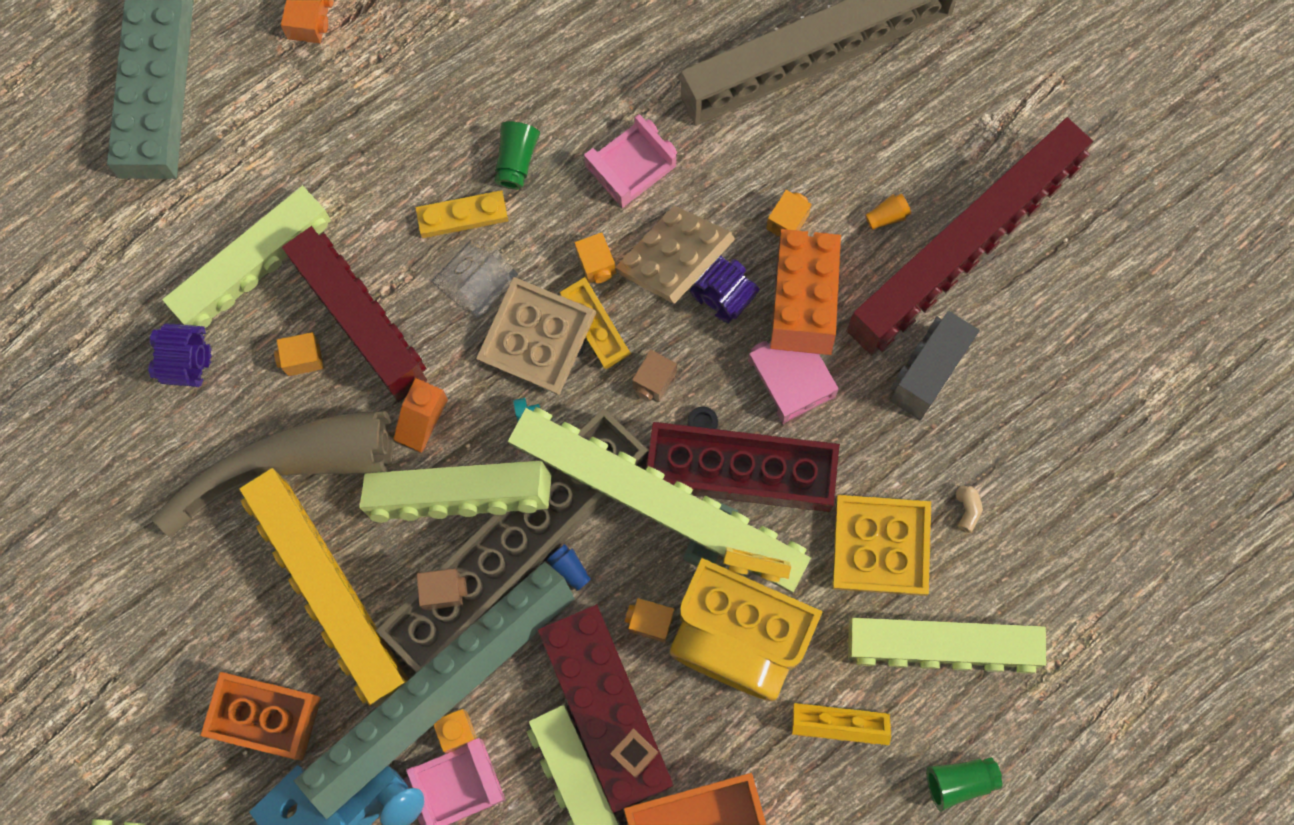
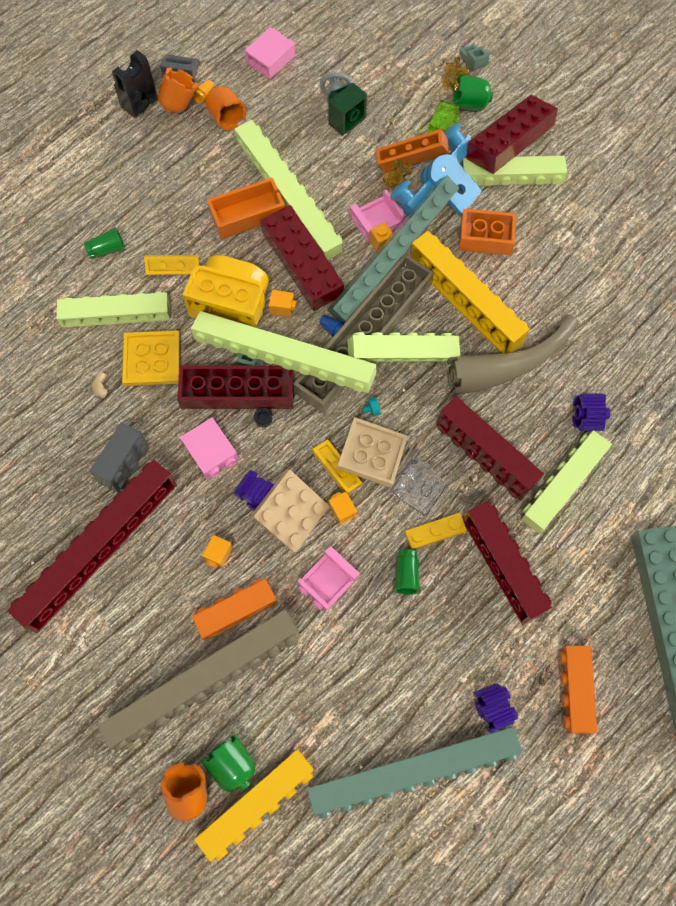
camera: 170 degrees right, 5 degrees down
(299, 354) = (517, 426): light orange brick -> none
(368, 145) = (506, 563): none -> dark red brick
(419, 415) = (435, 400): orange slope -> none
(441, 589) = (401, 290): medium nougat brick -> none
(634, 753) = (281, 220): medium nougat brick -> none
(654, 376) = (295, 437): medium nougat brick -> none
(768, 134) = (234, 610): none -> orange brick
(770, 568) = (221, 316): yellow plate -> none
(806, 292) = (202, 494): orange piece -> none
(890, 211) = (149, 564): light orange cone -> none

